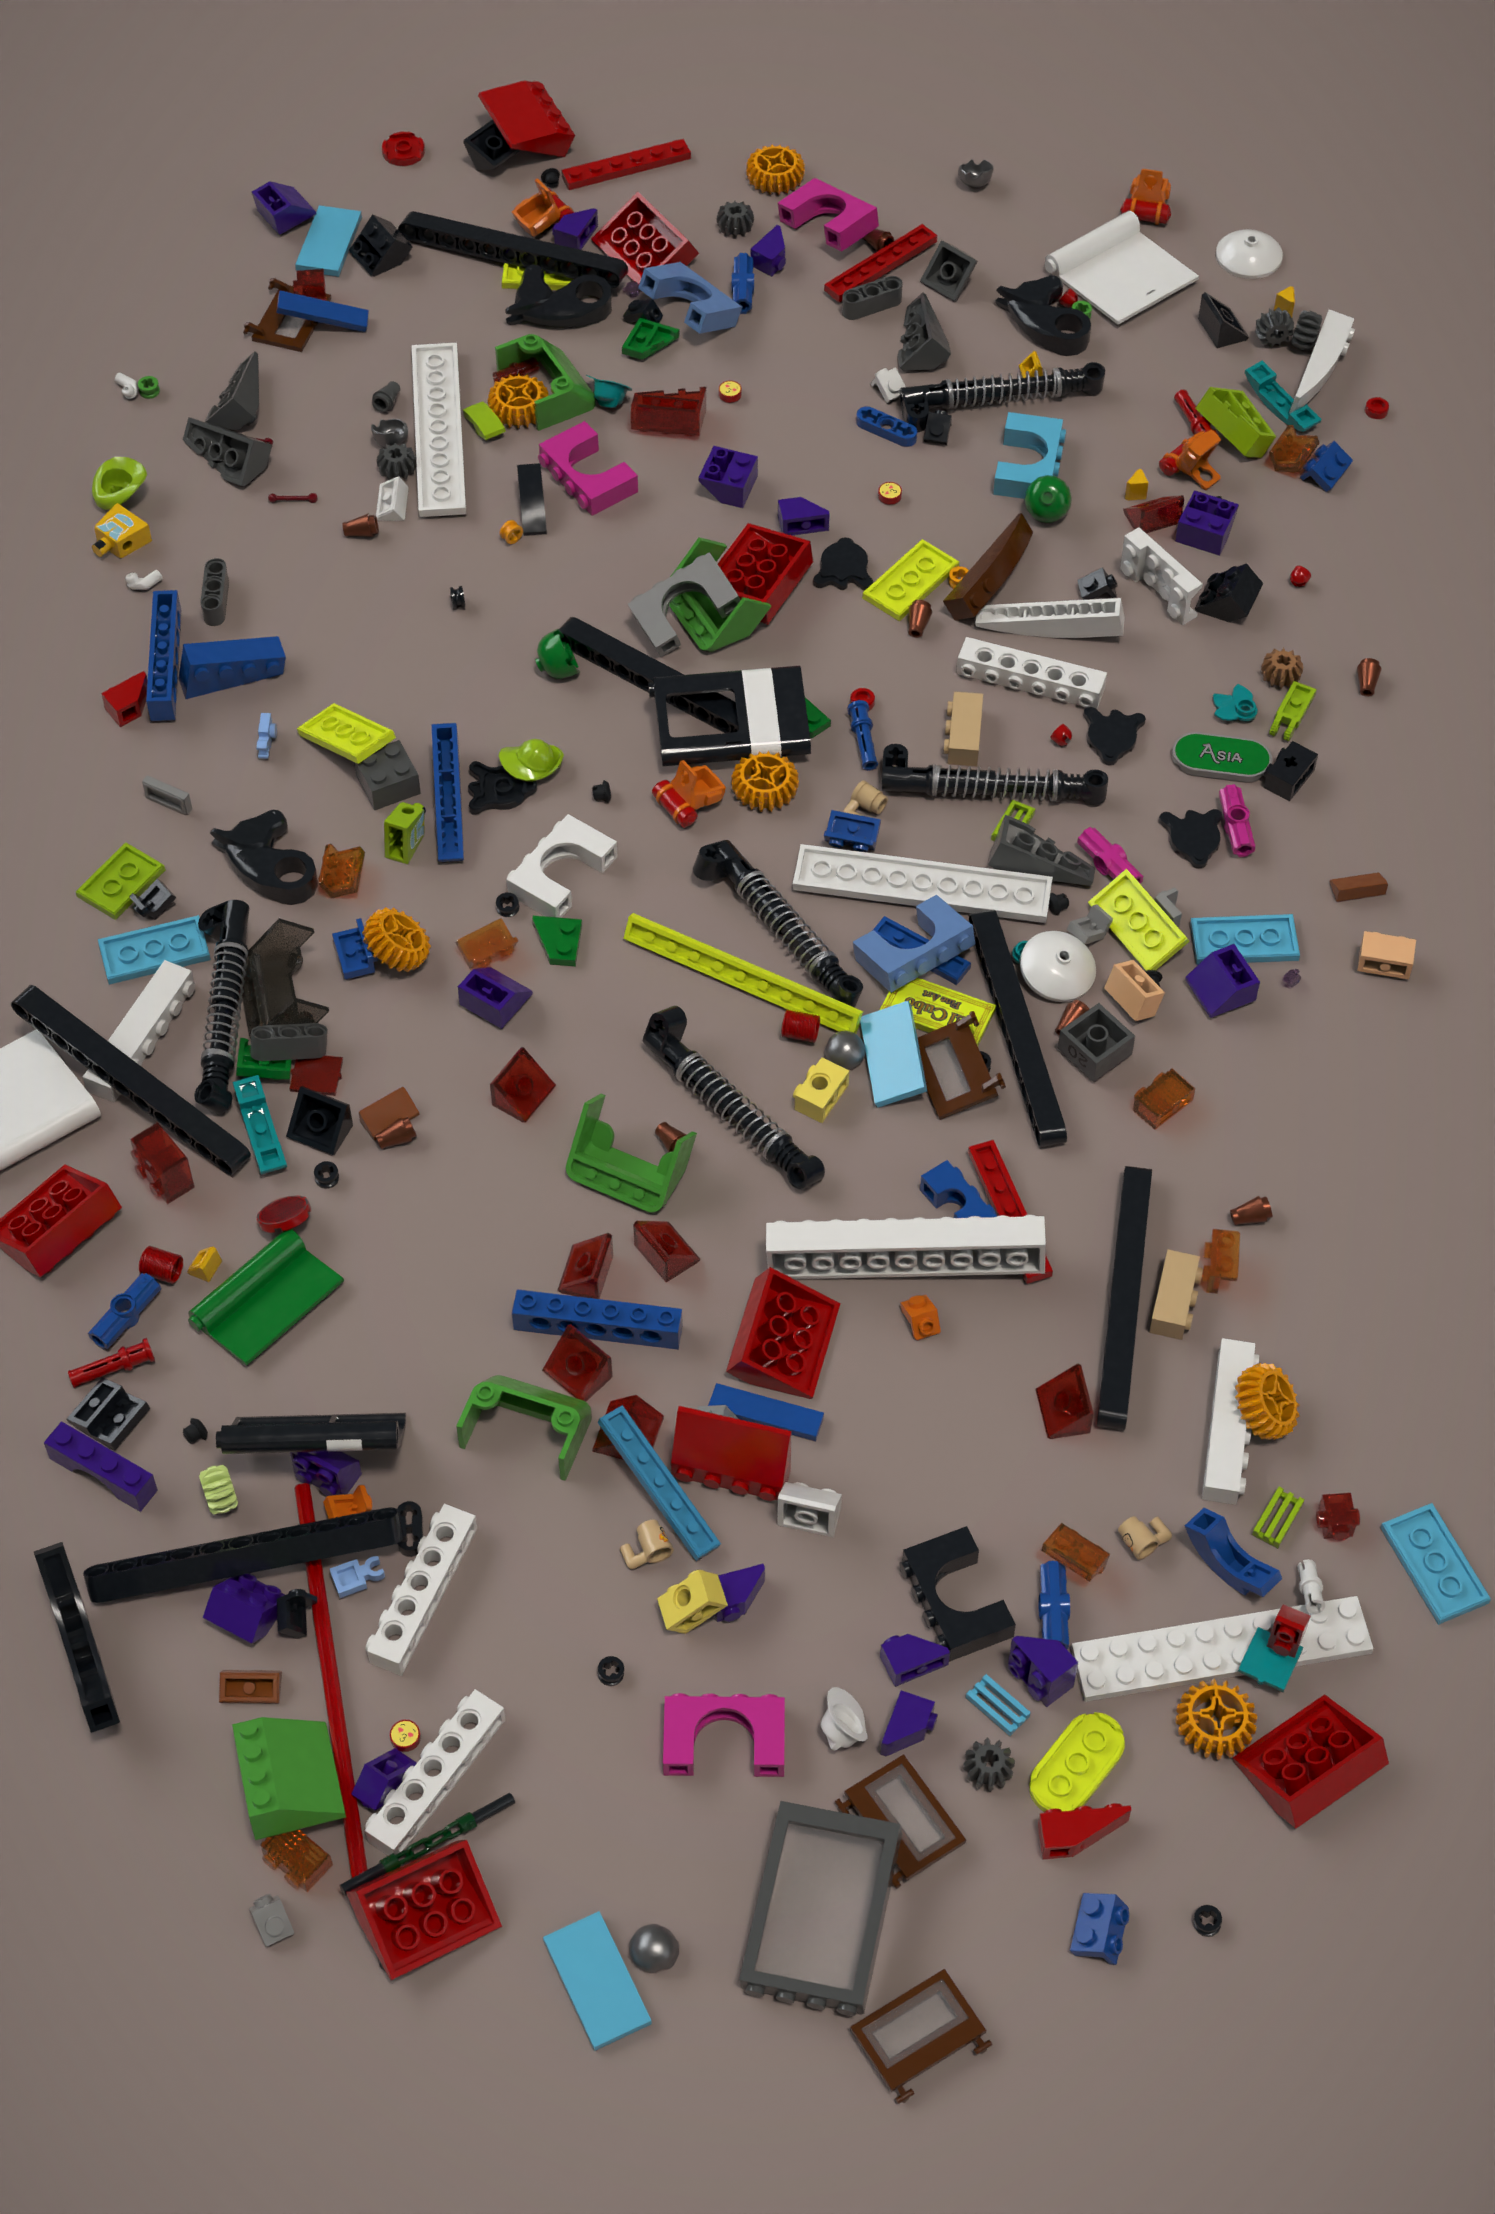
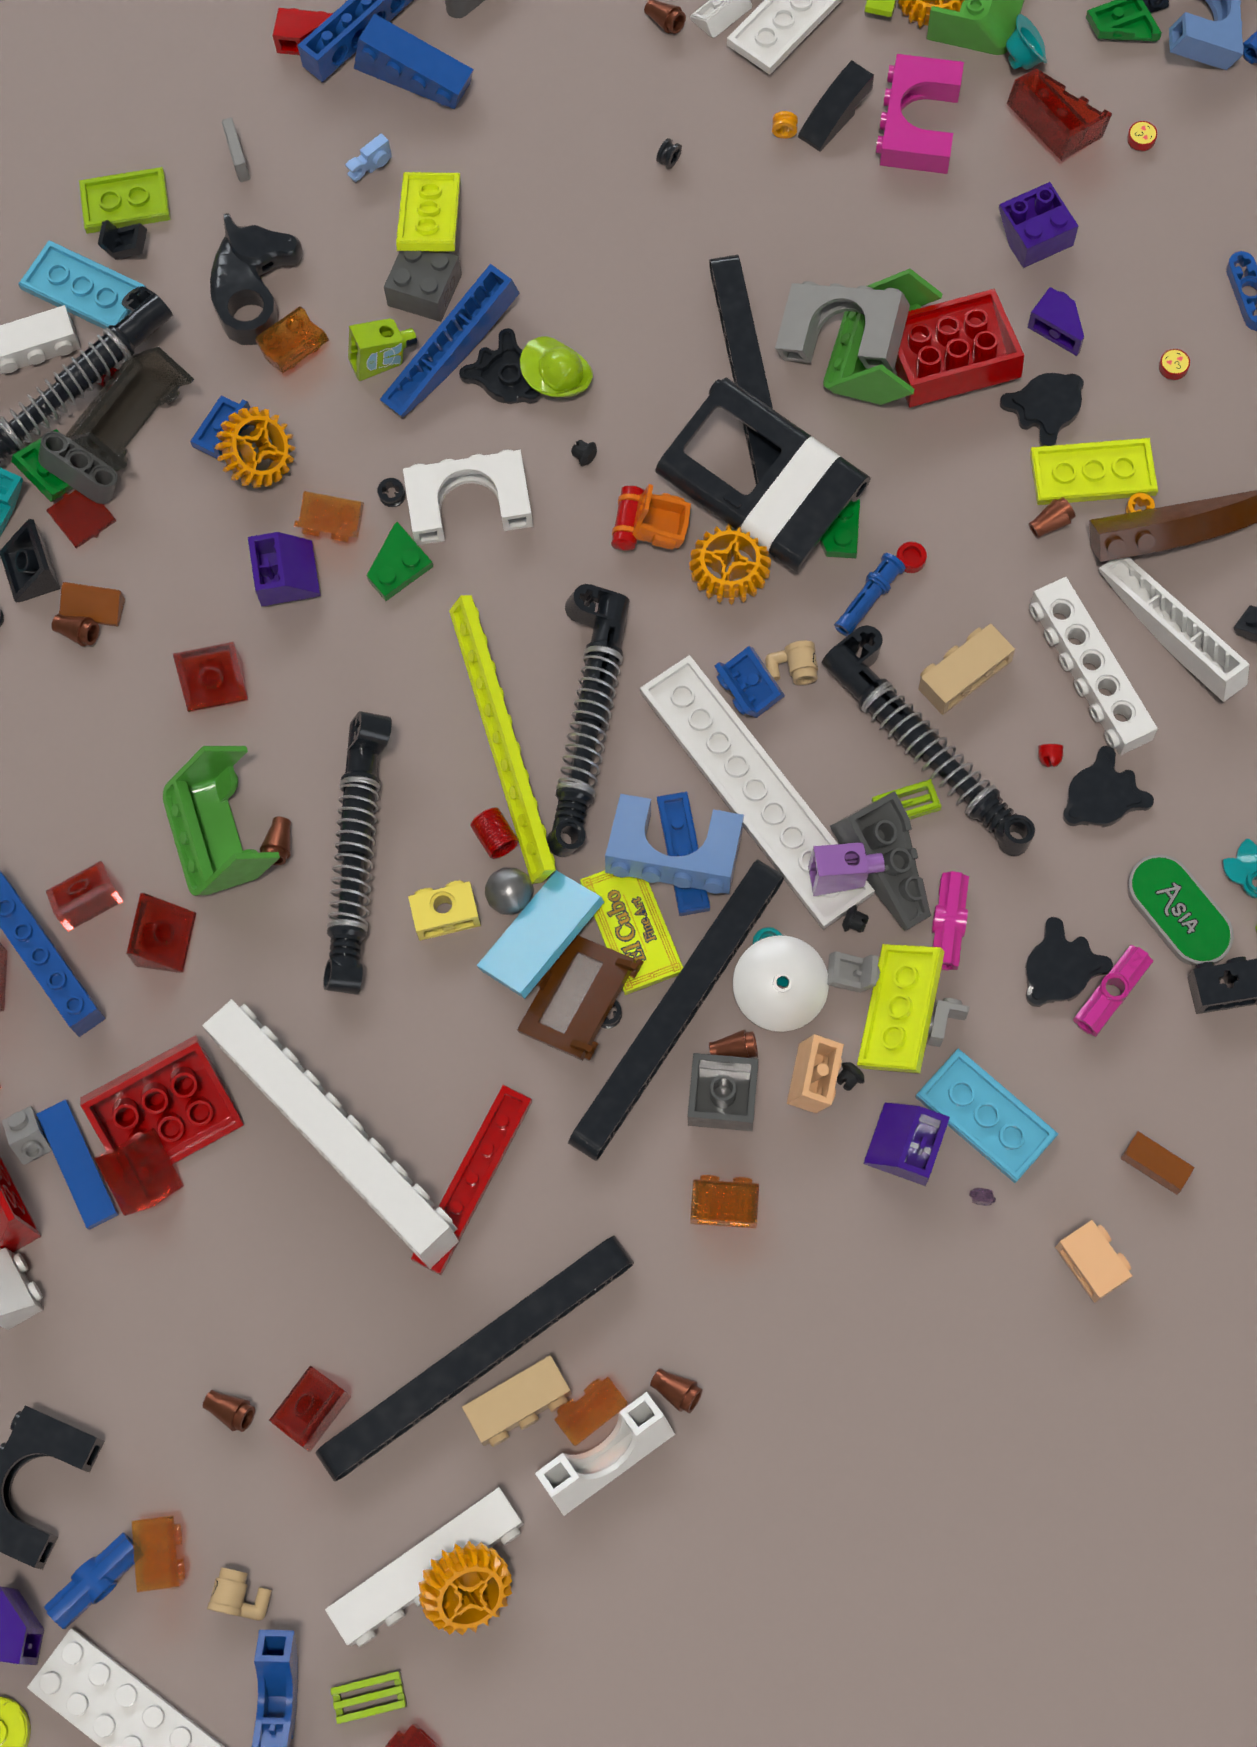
camera: 50 degrees right, 15 degrees up
(556, 657) = (686, 284): green cylinder -> none
(813, 1379) = (139, 1172): none -> clear red slope
(922, 1316) = (289, 1203): orange bracket -> none
(947, 1185) = (434, 1157): blue arch -> none
(1020, 1449) = (230, 1410): none -> copper cone
(1025, 873) = (841, 867): none -> medium lavender torso
(1255, 1298) = (577, 1477): none -> white arch

